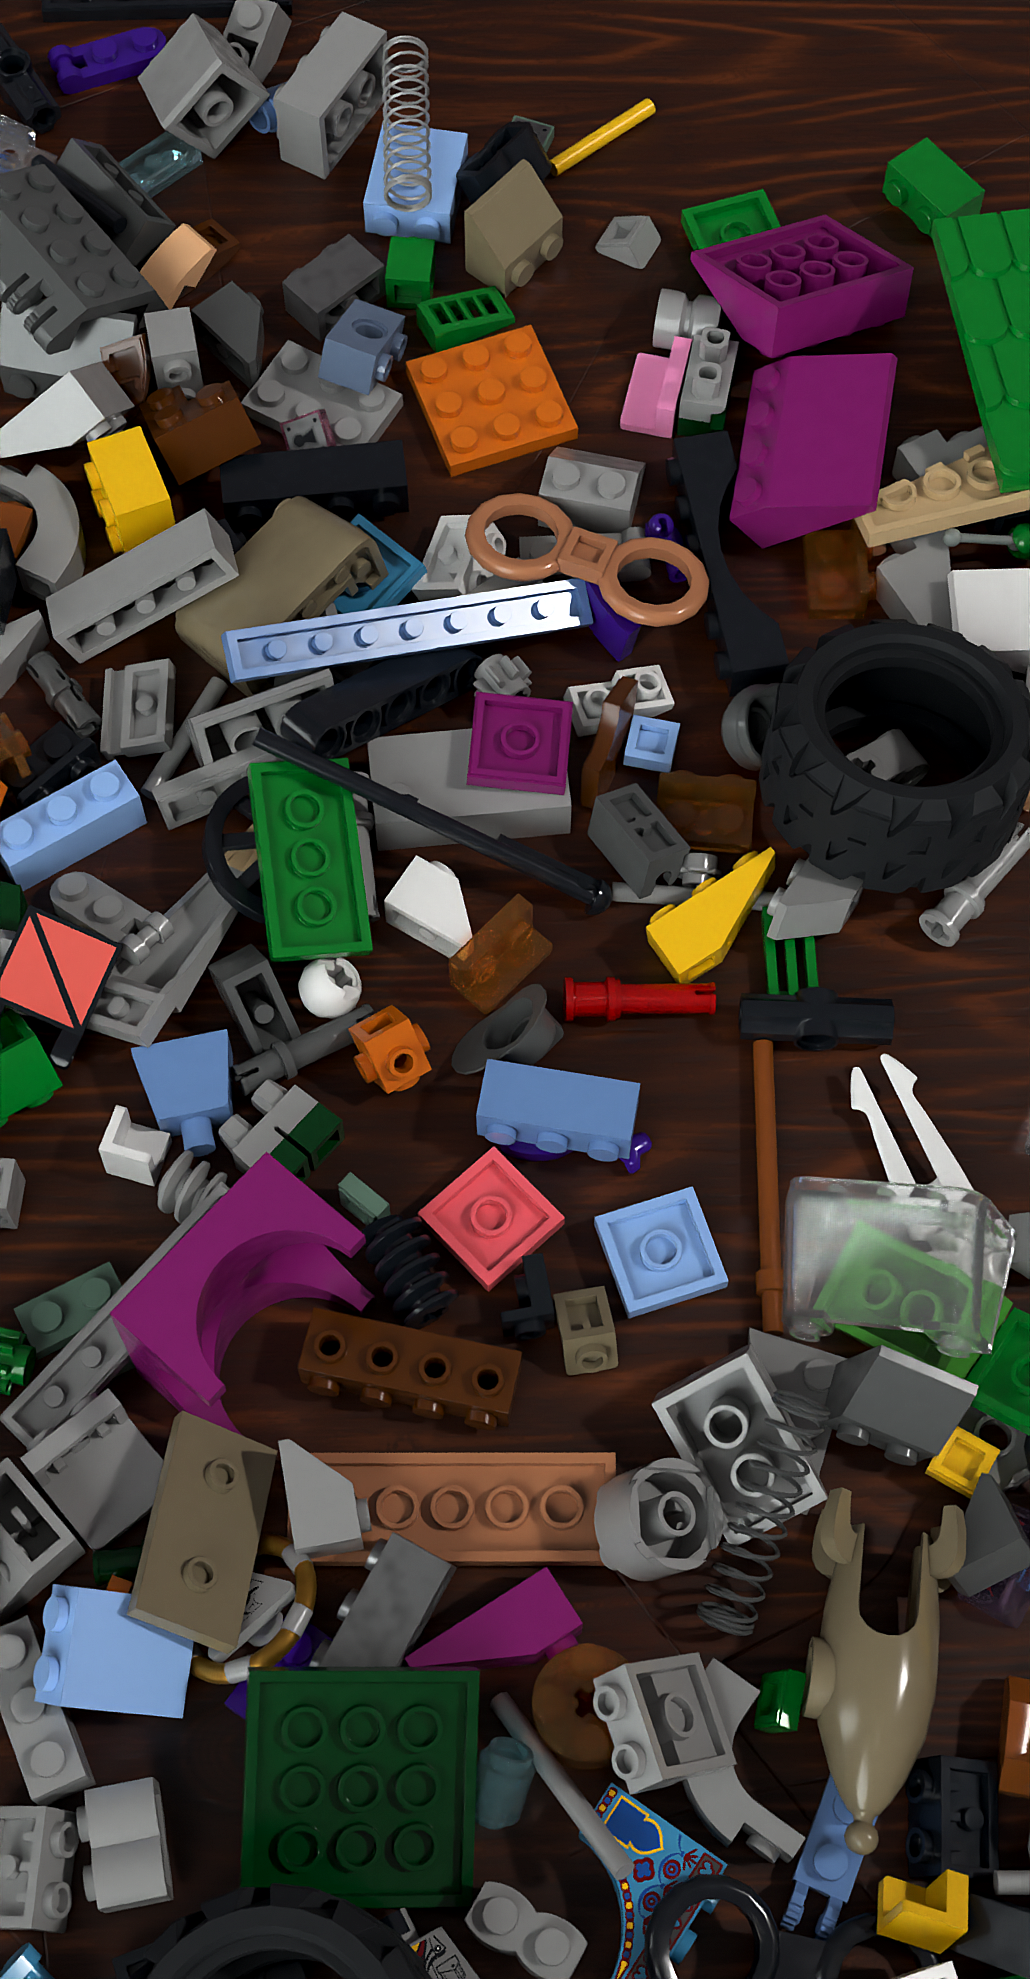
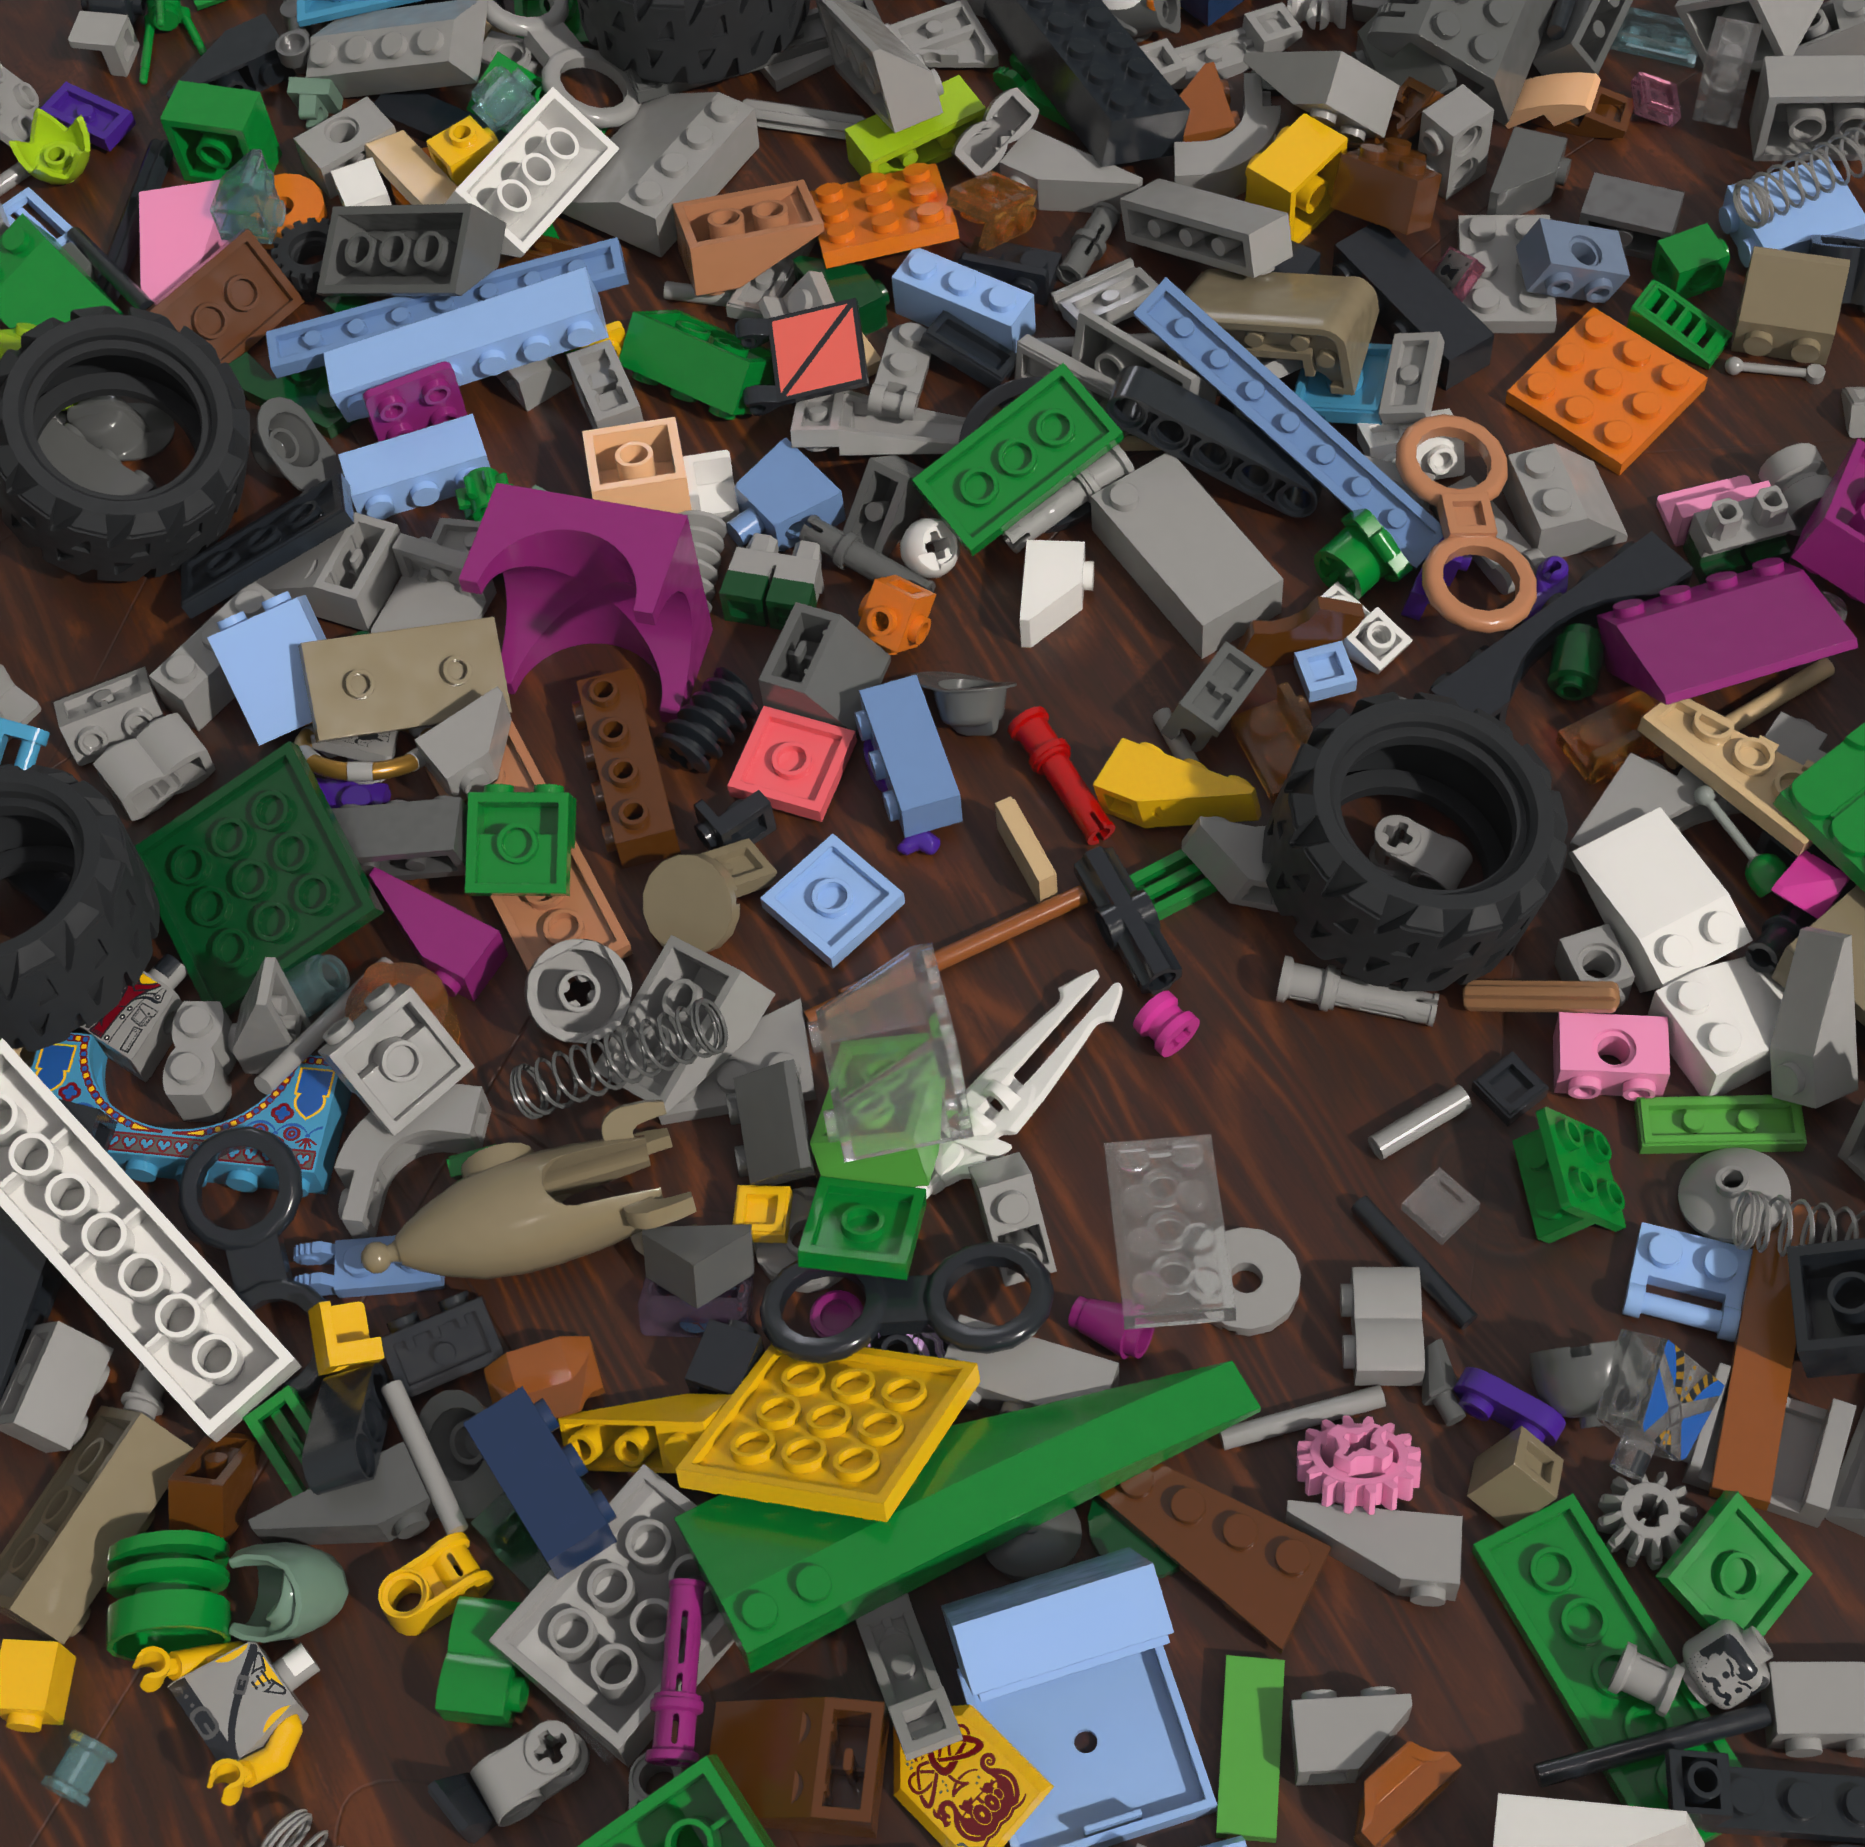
camera: 70 degrees right, 5 degrees down
(83, 1203) = (638, 465): none -> light nougat brick
(124, 848) = (969, 350): none -> black tile
(220, 204) = (1655, 99): none -> clear pink tile
(245, 138) = (1727, 72): none -> clear brick
(362, 1200) = (752, 662): sand green tile -> none
(407, 520) = (1411, 377): none -> light grey plate
(412, 1143) = (821, 667): none -> dark grey slope
(460, 1500) = (519, 841): none -> green plate
(499, 956) = (1035, 650): clear orange bracket -> none
(503, 676) = (1304, 529): light grey gear -> none
(505, 850) = (1131, 605): black bar -> none
(520, 743) = (1234, 556): magenta tile -> none
(536, 1844) = (267, 1019): none -> light grey slope
(559, 653) = (1361, 555): none -> green piece
(568, 257) = (1813, 373): none -> light grey hinge
(607, 1376) = (692, 901): none -> dark tan tile
(698, 868) = (1220, 760): light grey plate -> none
(702, 1064) = (1026, 849): none -> tan tile
(755, 561) = (1576, 662): none -> dark green brick
(936, 1039) = (1166, 1023): none -> dark pink wheel

